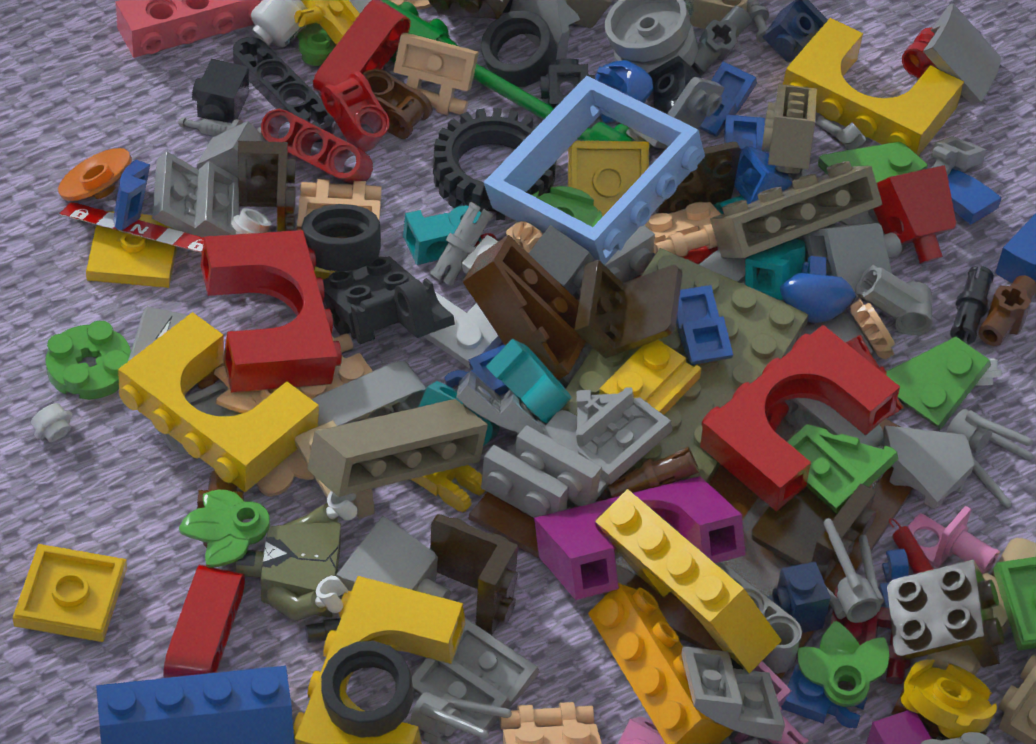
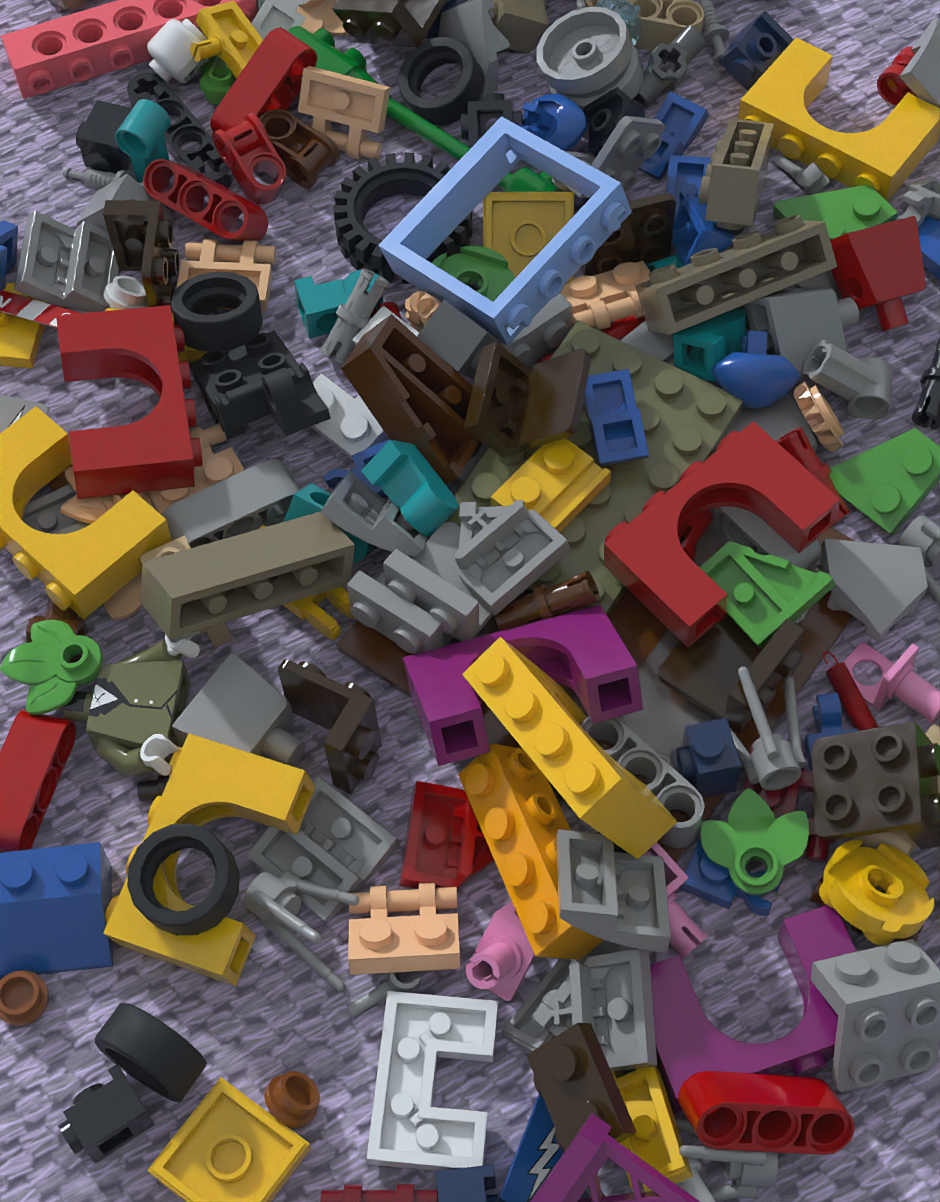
camera: 10 degrees right, 10 degrees up
(260, 89) = (143, 135): none -> teal piece
(577, 667) = (442, 839): none -> red slope

